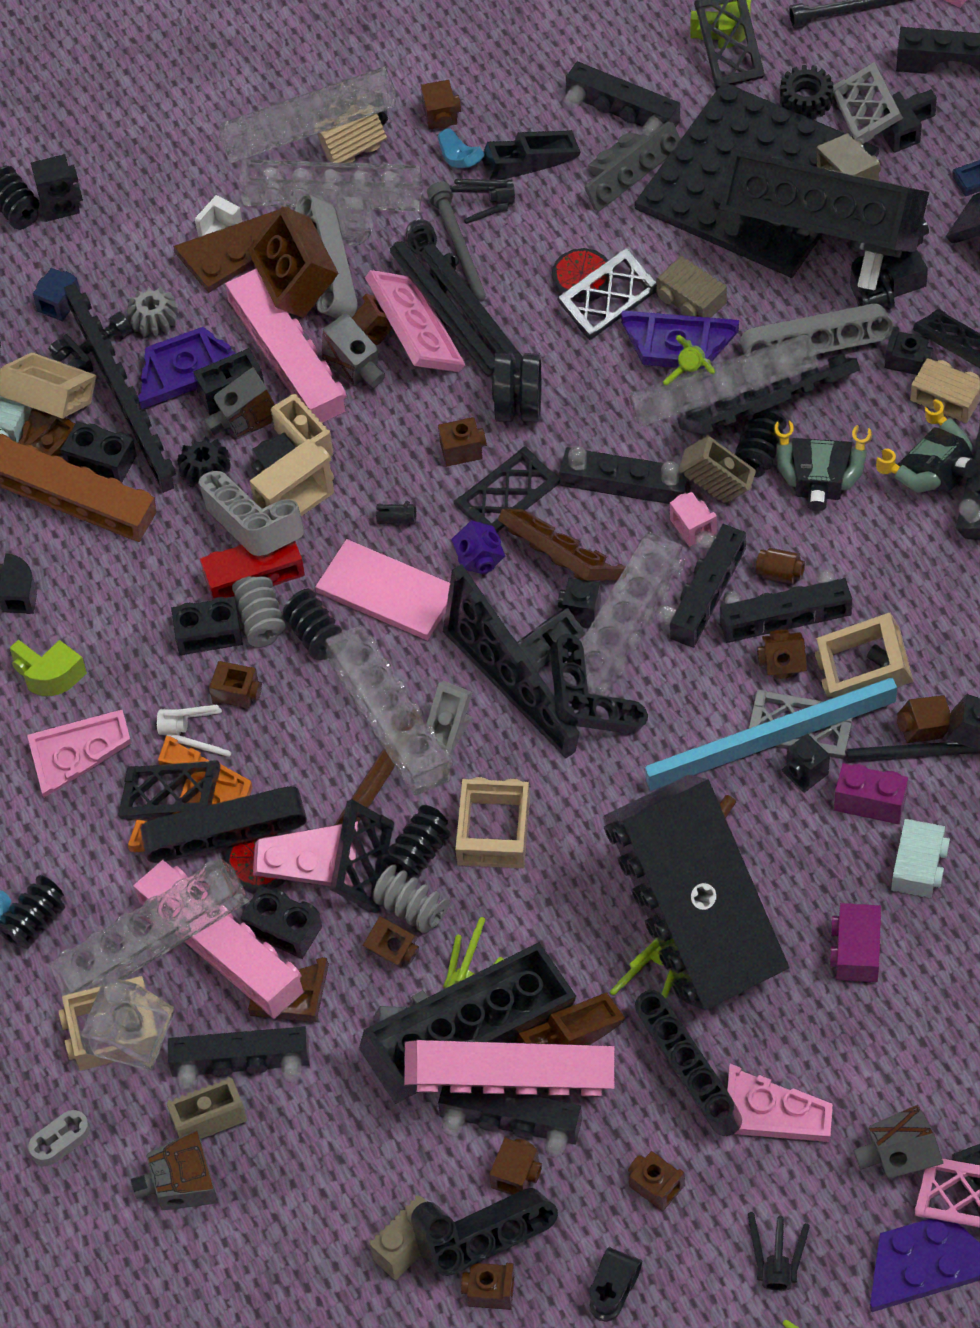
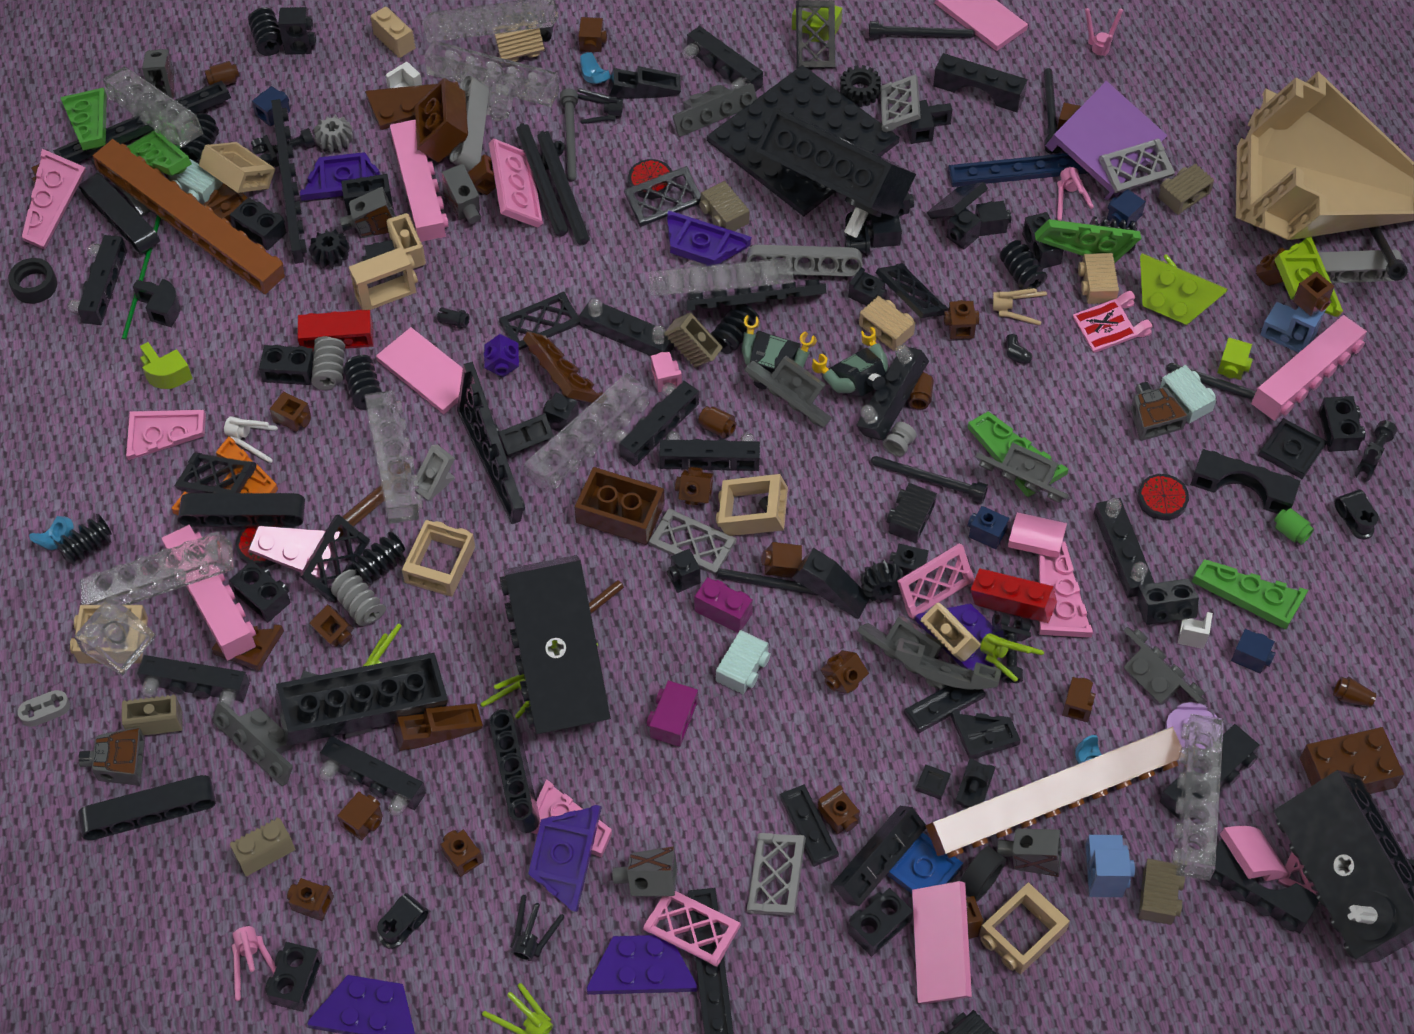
camera: 10 degrees right, 0 degrees up
(180, 160) = (392, 32): none -> tan brick
(240, 1227) = (146, 807): none -> black beam
(255, 528) = (345, 303): light grey beam -> none
(349, 1106) = (258, 738): none -> dark grey bracket
(419, 231) = (545, 120): black wheel -> none
(461, 441) = (518, 276): reddish brown brick -> none
(509, 1066) = (376, 738): bright pink brick -> none
(515, 387) = (570, 246): black wheel -> none
(525, 1216) = (318, 851): black beam -> none
(579, 697) = (531, 481): black beam -> none
(690, 360) = (702, 255): lime plant -> none
(697, 700) = (619, 505): none -> reddish brown brick
(771, 733) = (667, 542): medium azure tile -> none
(787, 1148) = (564, 853): none -> dark purple wing
(847, 156) = (869, 137): dark tan brick -> none
(863, 496) = (793, 385): none -> dark grey bracket

